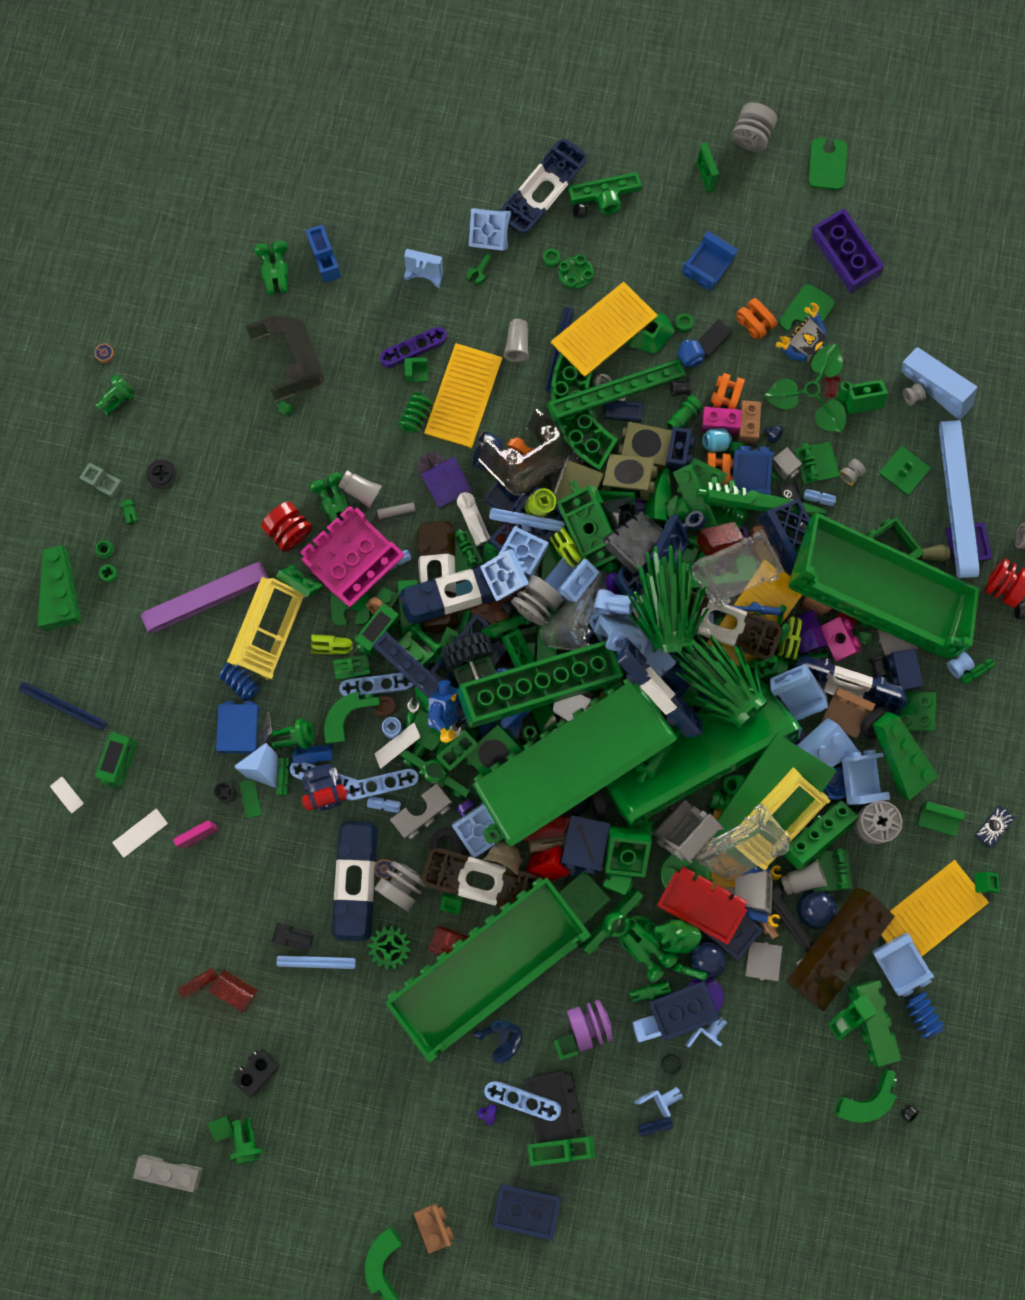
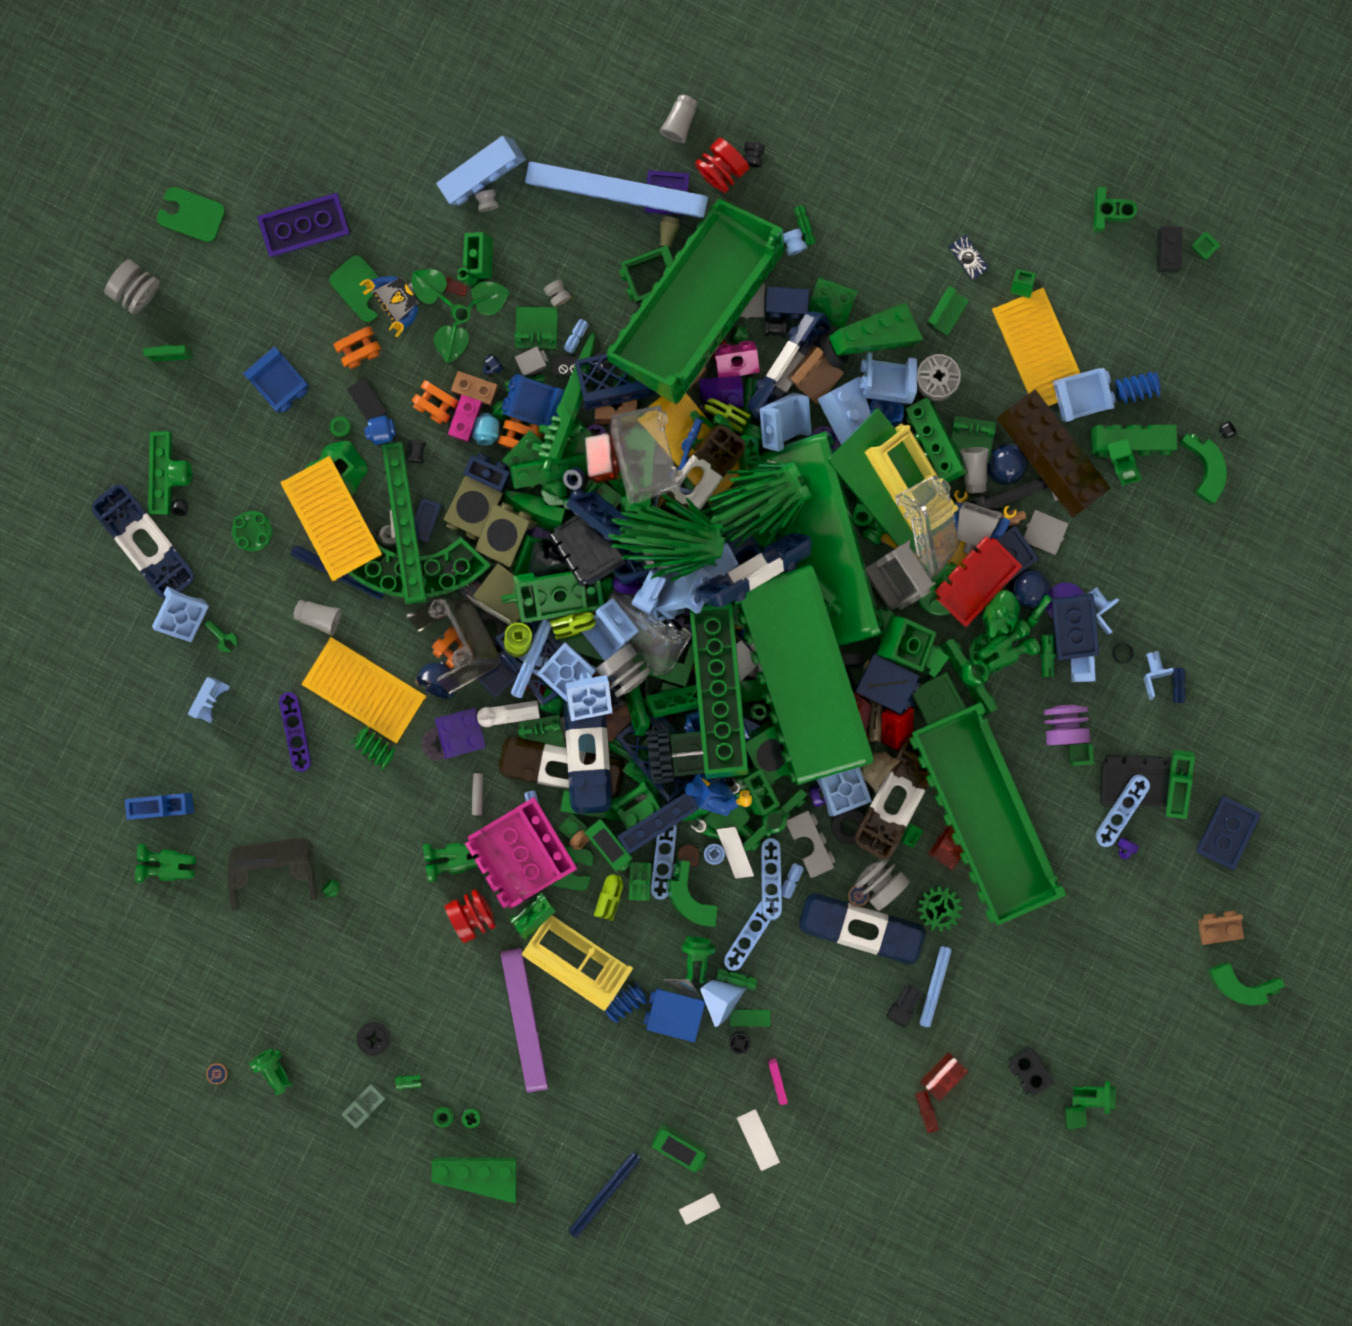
camera: 75 degrees left, 10 degrees up
(171, 1175) = (1103, 1187): light grey arch -> none
(313, 754) = (722, 940): blue plate -> none
(322, 788) = (762, 940): dark blue piece -> none
(359, 488) = (446, 827): light grey plant -> none
(416, 370) = (324, 735): green panel -> none
(487, 834) = (847, 775): green plate -> none
(506, 1048) = (1067, 814): dark blue helmet -> none
(551, 258) = (227, 553): green tile -> none
(685, 413) = (447, 455): green axle -> none
(904, 470) = (567, 235): green piece -> none

